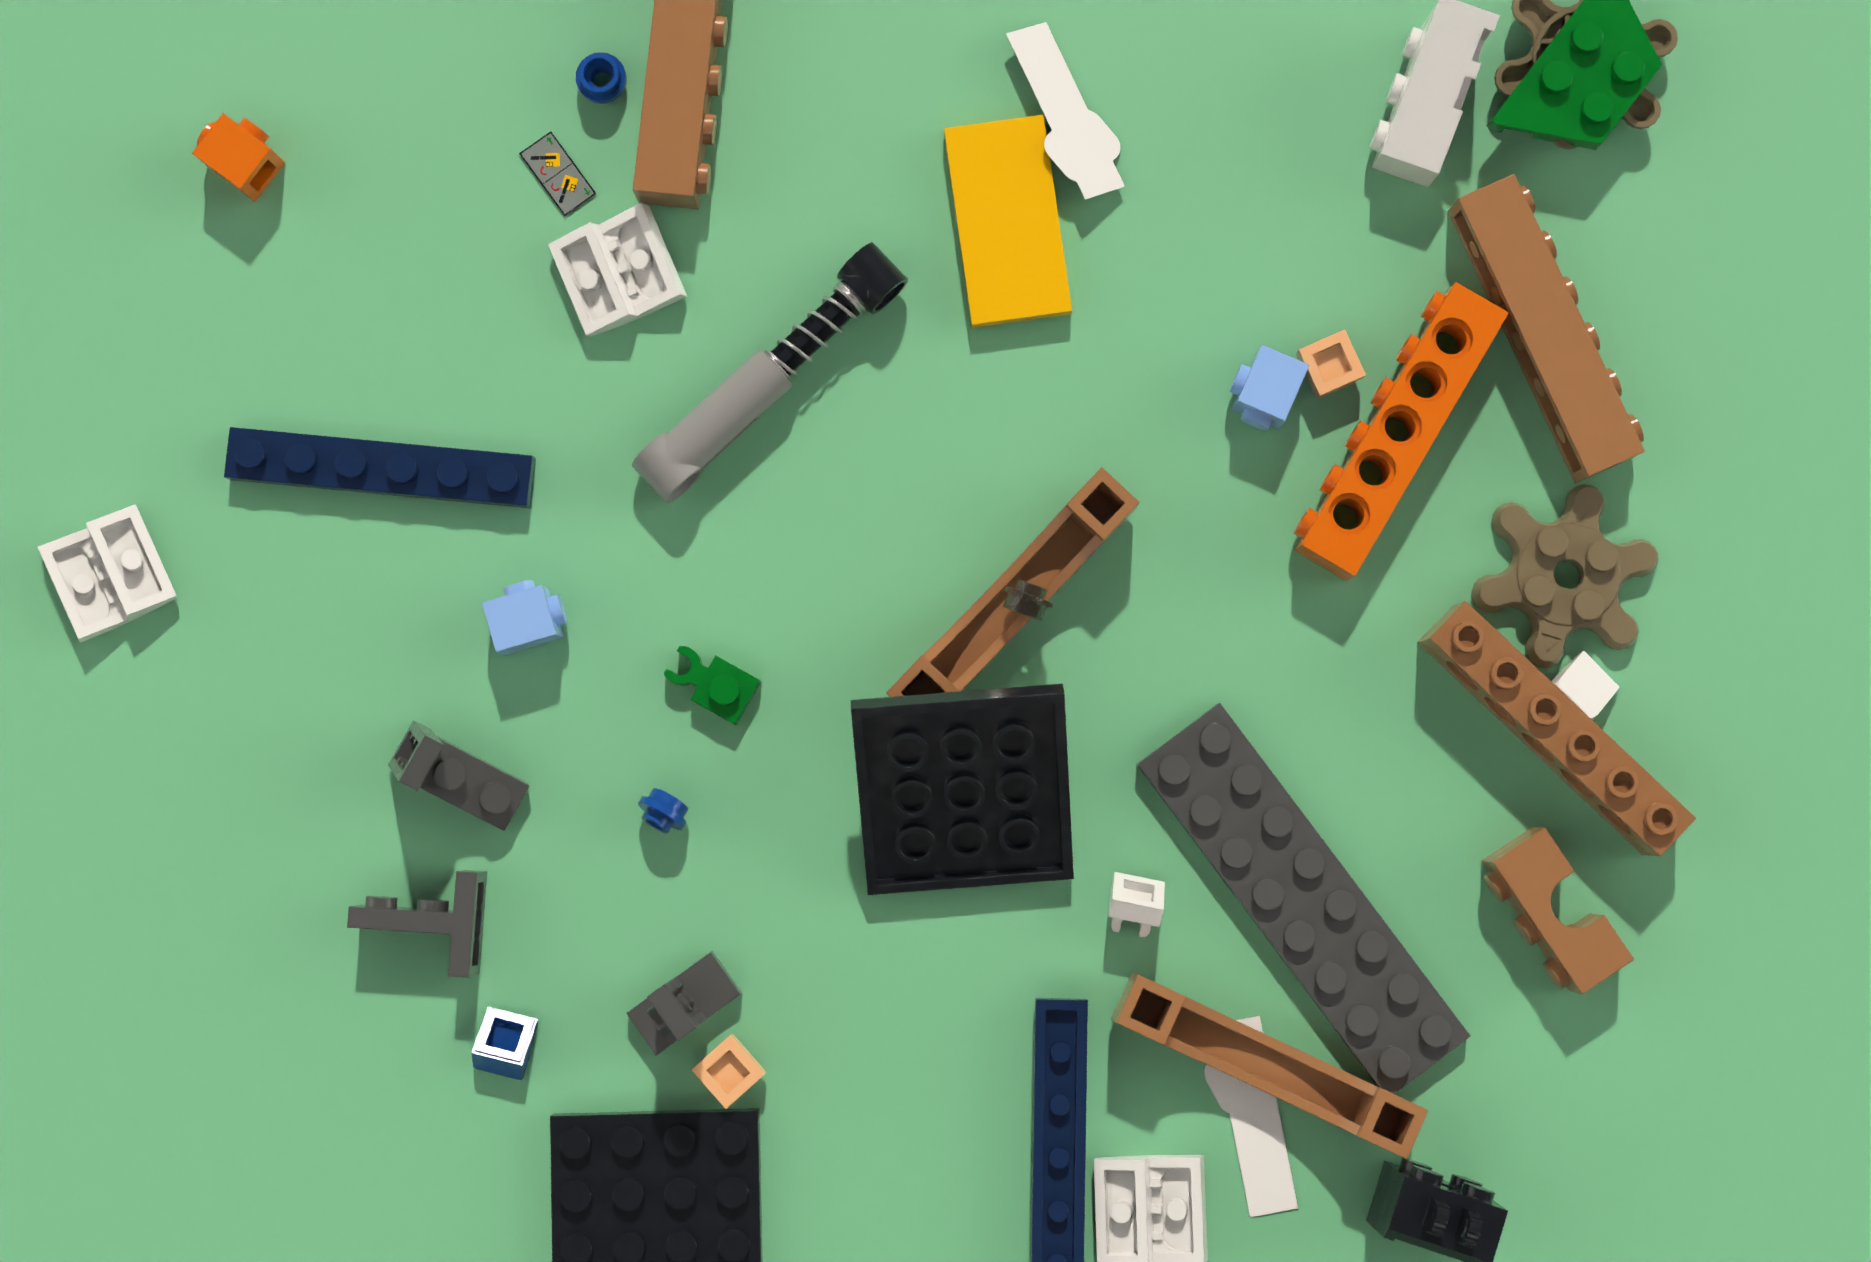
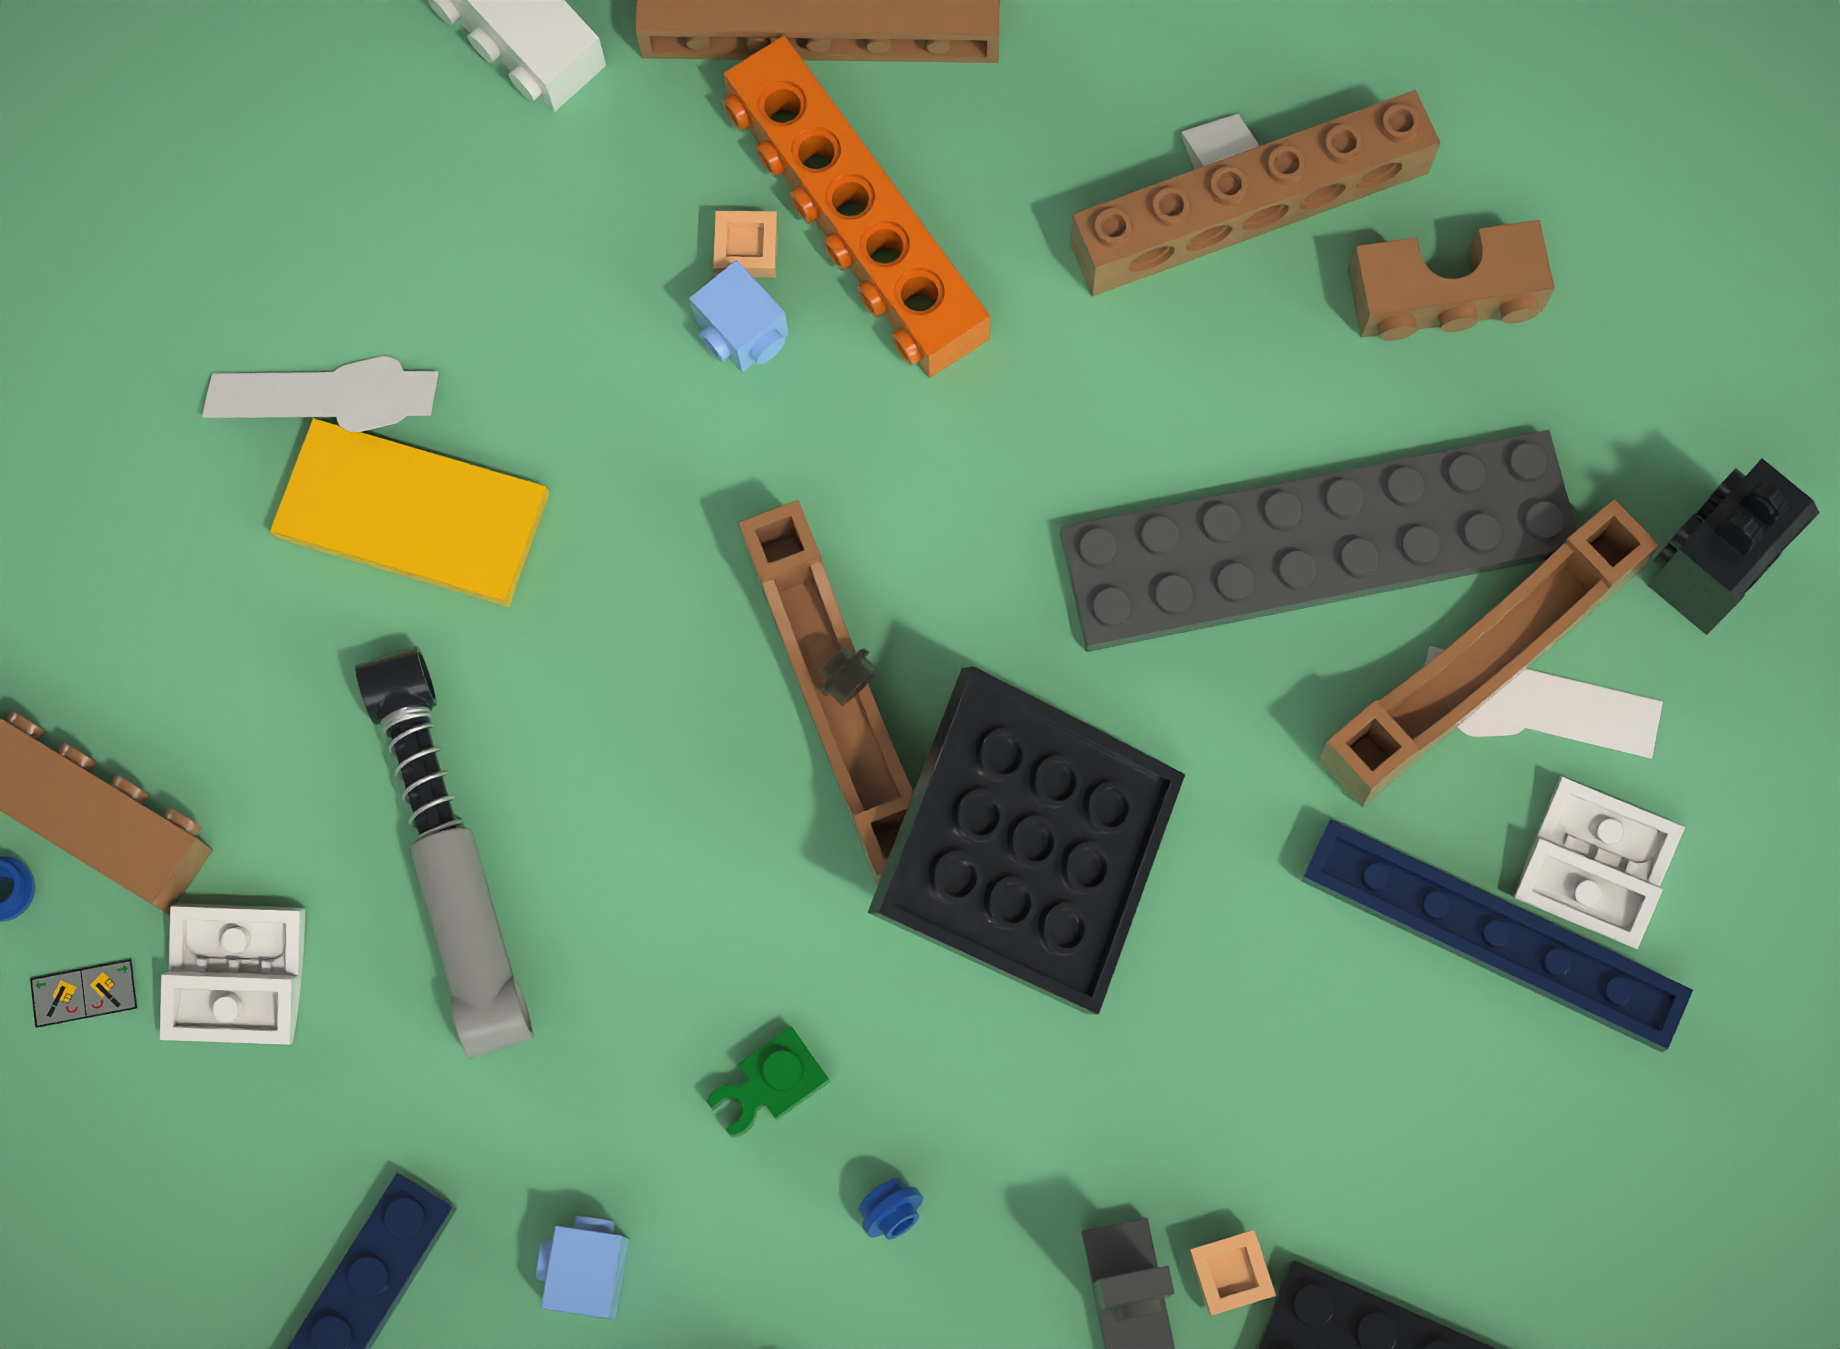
camera: 65 degrees left, 10 degrees down
(1136, 901) = (1241, 715): white tile -> none
(1531, 584) = (1084, 151): dark tan plate -> none

